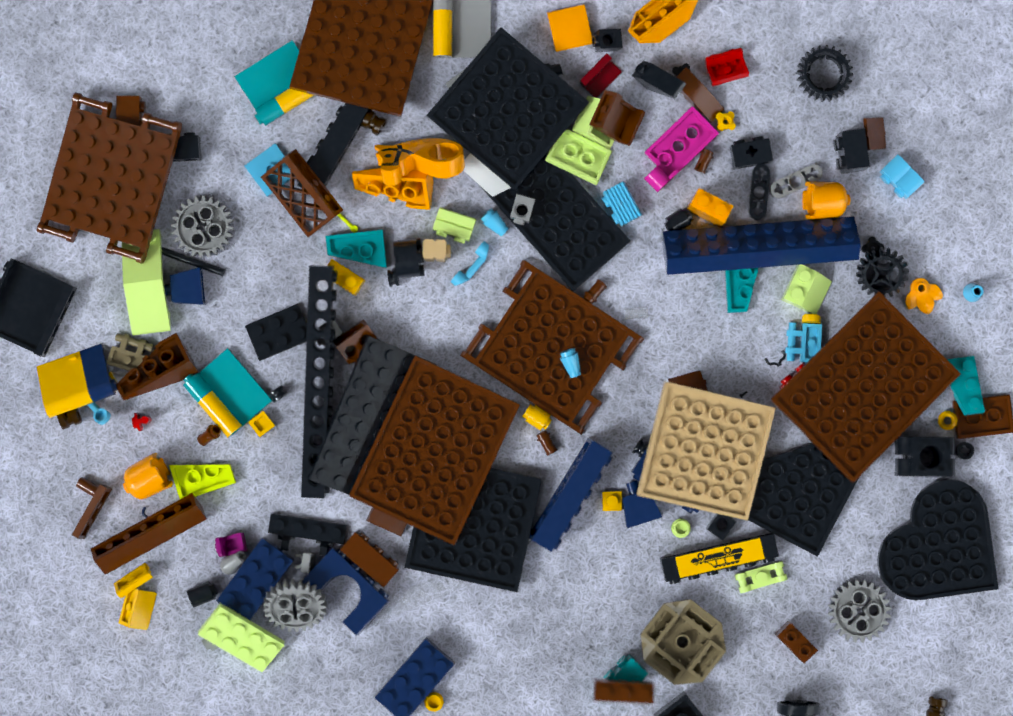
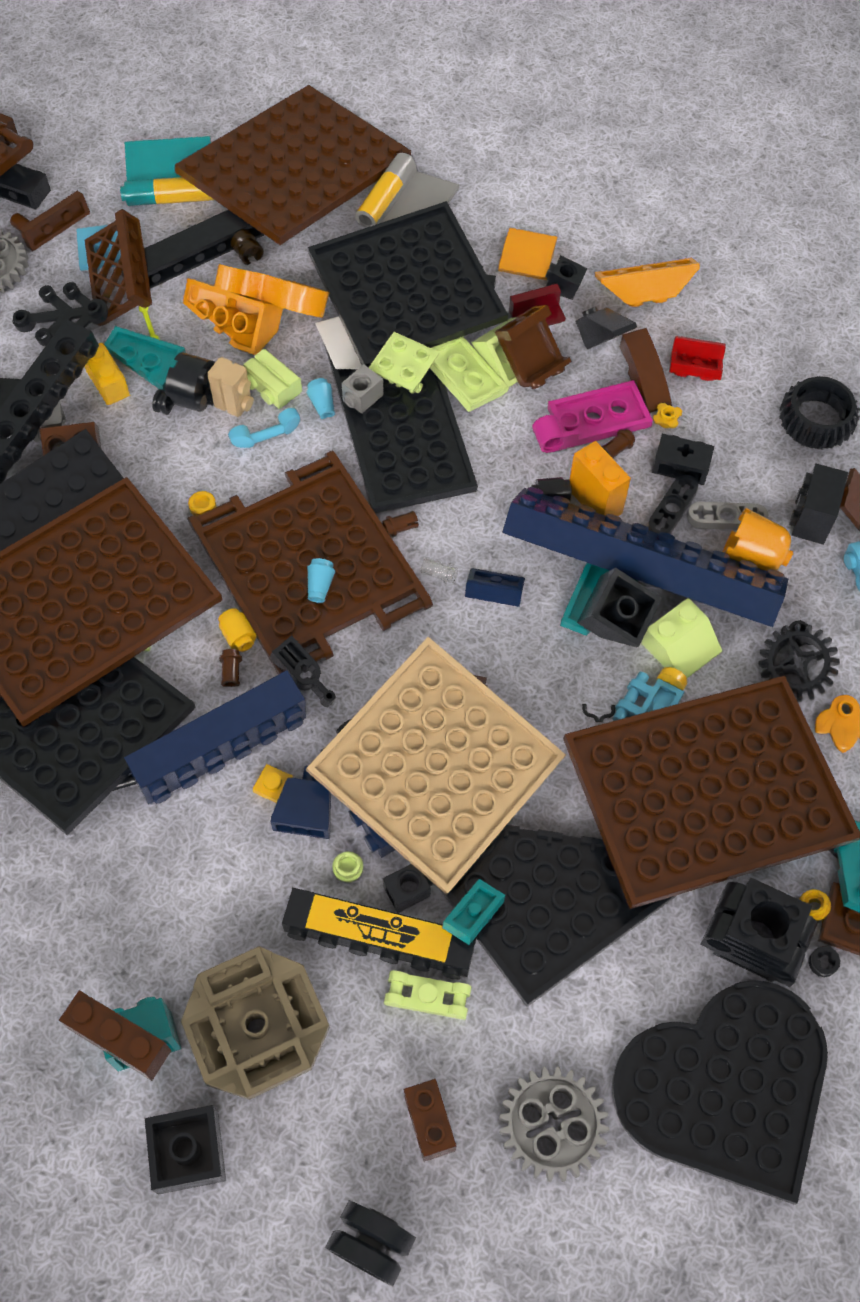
camera: 25 degrees right, 25 degrees down
(227, 165) = (52, 221): none -> reddish brown piece
(287, 245) = (92, 311): none -> black plant
(462, 339) = (201, 502): none -> yellow tile
(539, 175) = (404, 362): none -> yellowish green hinge
(590, 425) = (295, 659): none -> black piece
(621, 204) = (489, 443): medium azure brick -> none
(675, 305) = (494, 587): none -> dark blue slope
(763, 294) = (619, 609): none -> black slope
(767, 524) = (473, 911): none -> teal plate

